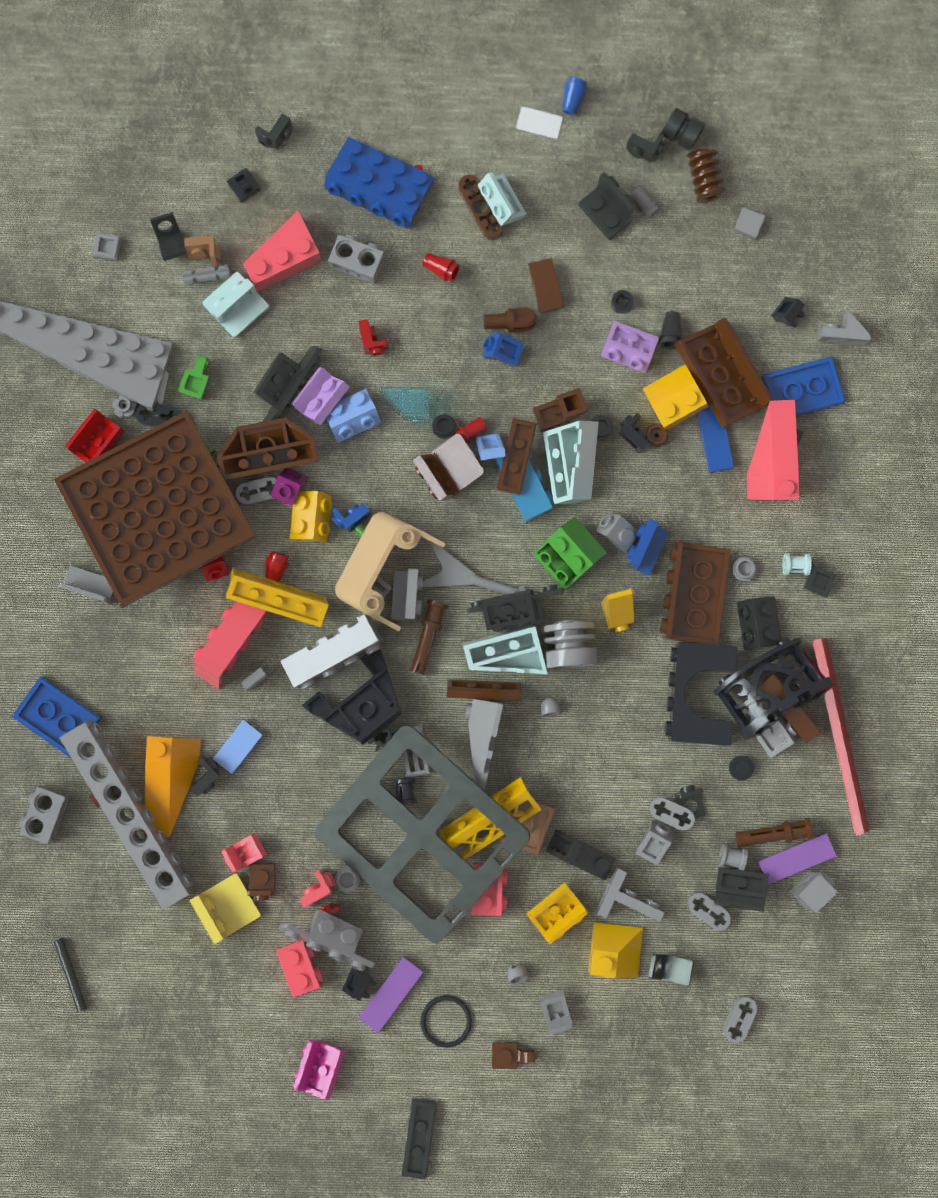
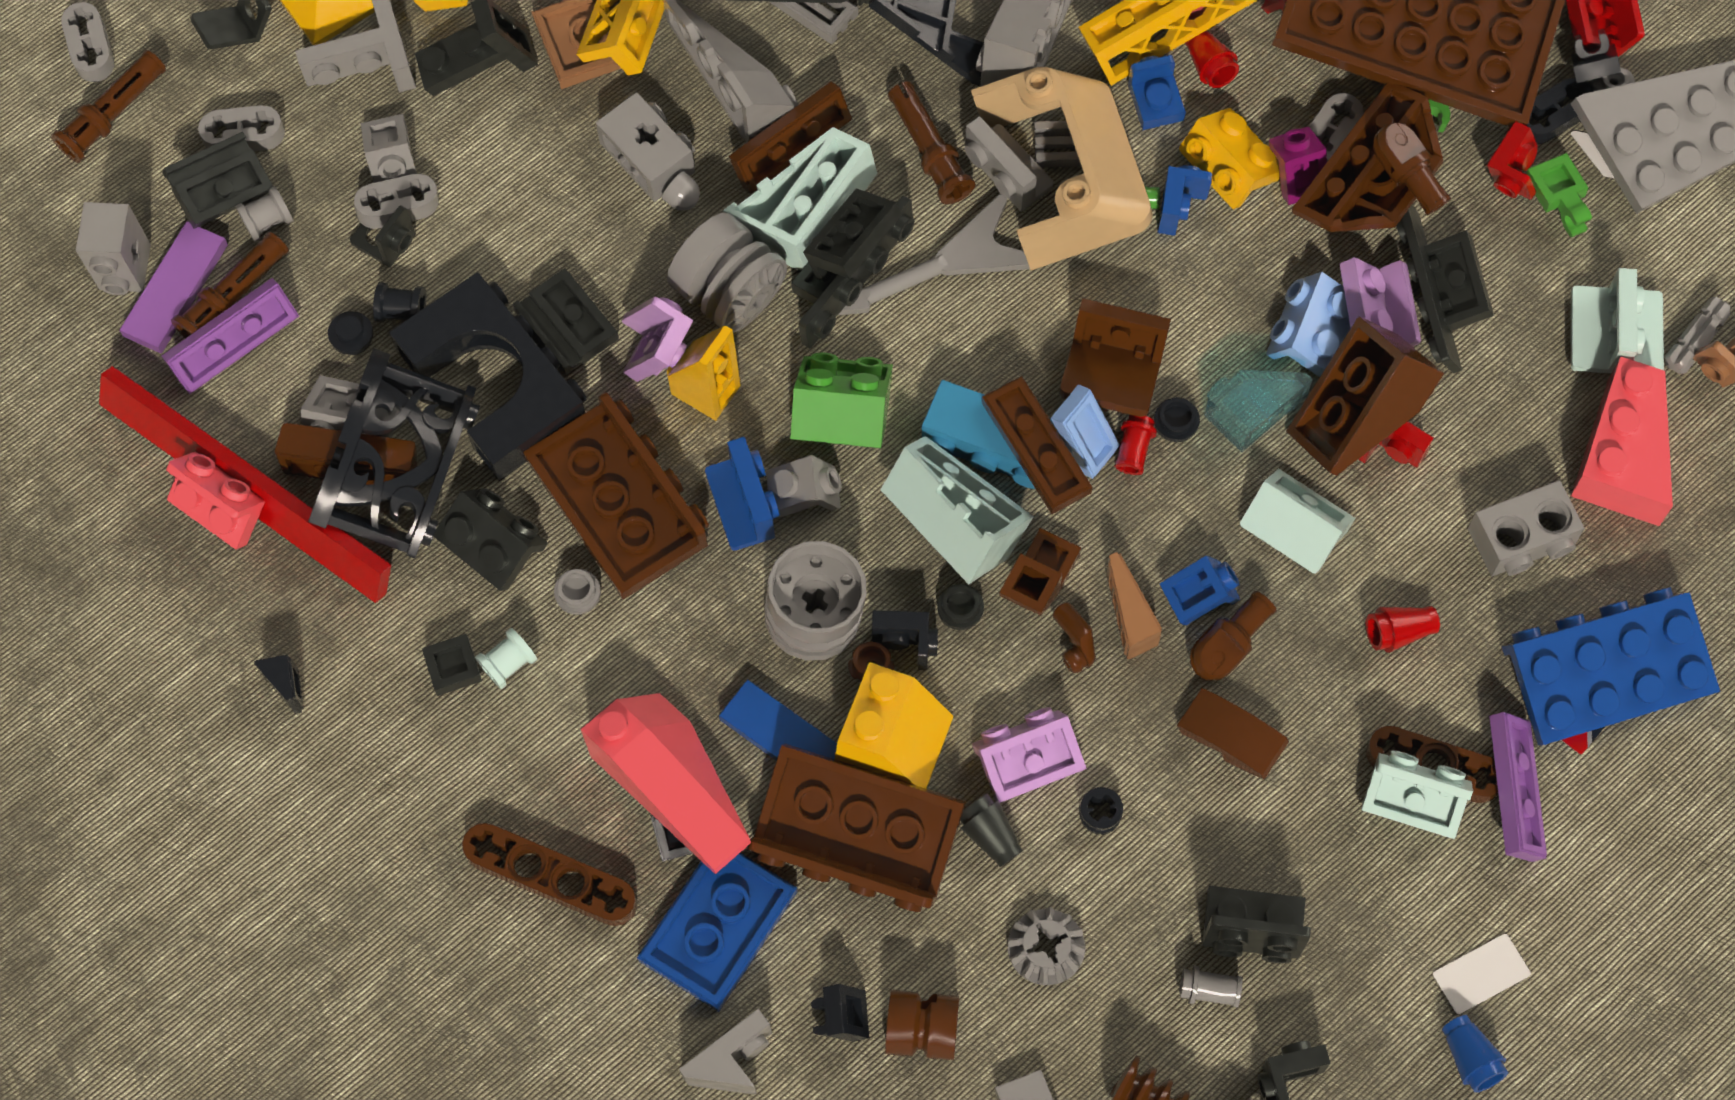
camera: 145 degrees right, 15 degrees down
(125, 417) = (1594, 62): none -> black tile
(199, 407) = (1511, 158): none -> red bracket
(257, 432) = (1408, 163): none -> reddish brown arm
(313, 573) = (1155, 92): none -> blue bracket
(370, 359) = (1363, 396): none -> reddish brown slope
(437, 343) = (1296, 520): none -> light aqua panel
(460, 169) = (1518, 787): none -> medium lavender tile
(541, 359) = (1135, 619): none -> medium nougat slope
(554, 753) = (645, 144): none -> light grey brick
(566, 374) = (1081, 637): none -> reddish brown arm
(625, 641) = (662, 331): none -> lavender bracket
(649, 691) = (566, 321): none -> pearl dark grey plate
(667, 461) = (808, 577): none -> light grey wheel
(679, 276) = (1037, 966): none -> light grey gear
(711, 761) = (397, 303): none -> black bush
(764, 280) = (922, 1025): none -> reddish brown wheel
(768, 972) = (92, 123): none -> reddish brown pin
(793, 809) = (230, 335): none -> medium lavender tile
(855, 462) = (546, 881): none -> reddish brown beam
(858, 737) = (214, 498): none -> coral bracket
(892, 633) = (284, 678): none -> black slope

